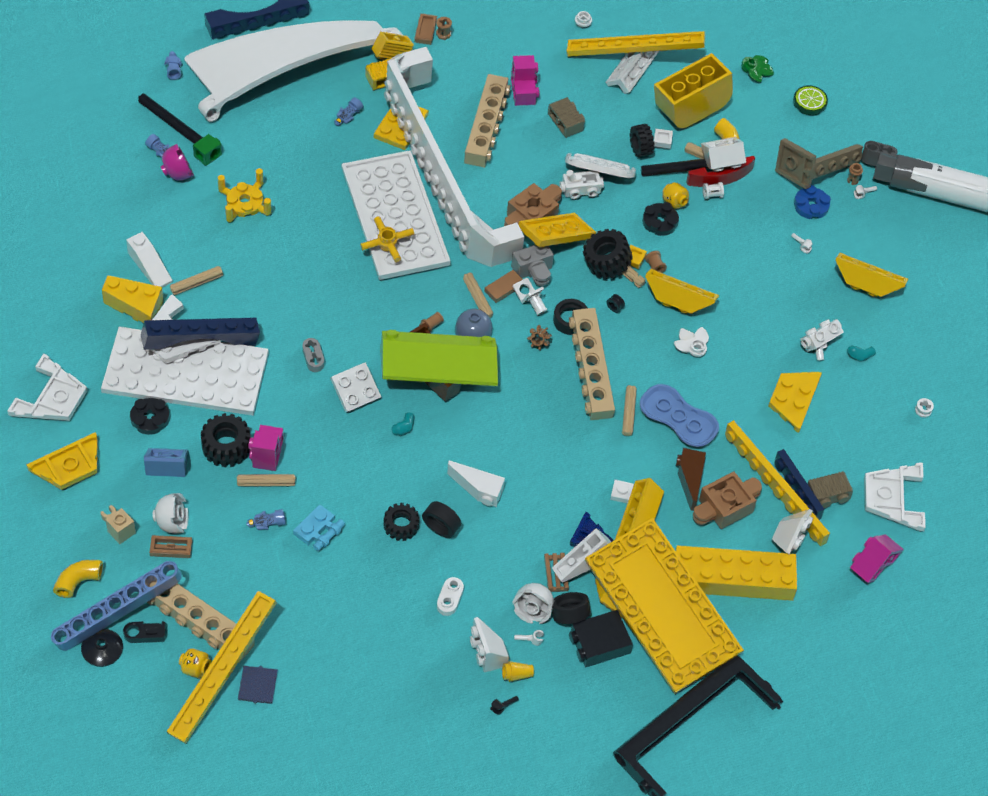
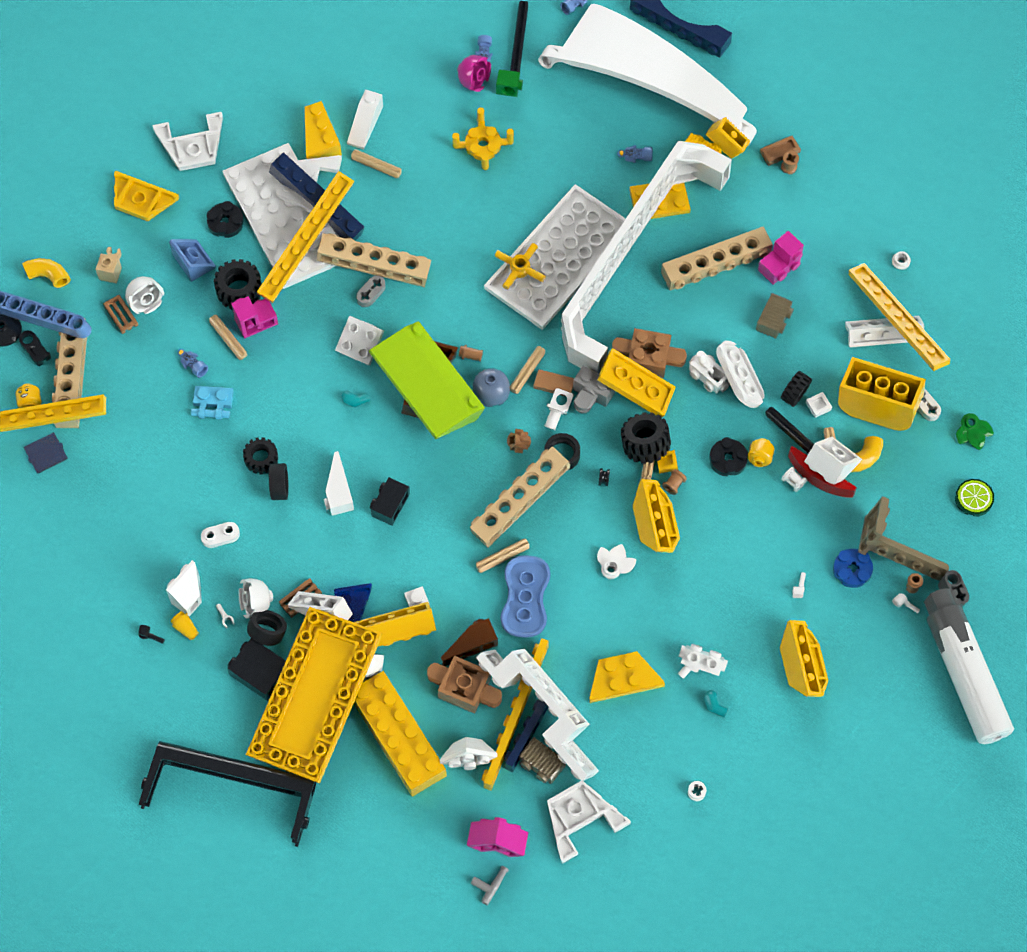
camera: 60 degrees right, 10 degrees up
(235, 358) = (305, 237): none -> yellow plate
(290, 332) = (365, 264): none -> tan brick
(520, 455) = (389, 501): none -> black brick
(821, 453) = (570, 724): none -> white bracket
(911, 593) = (490, 889): none -> light grey piece

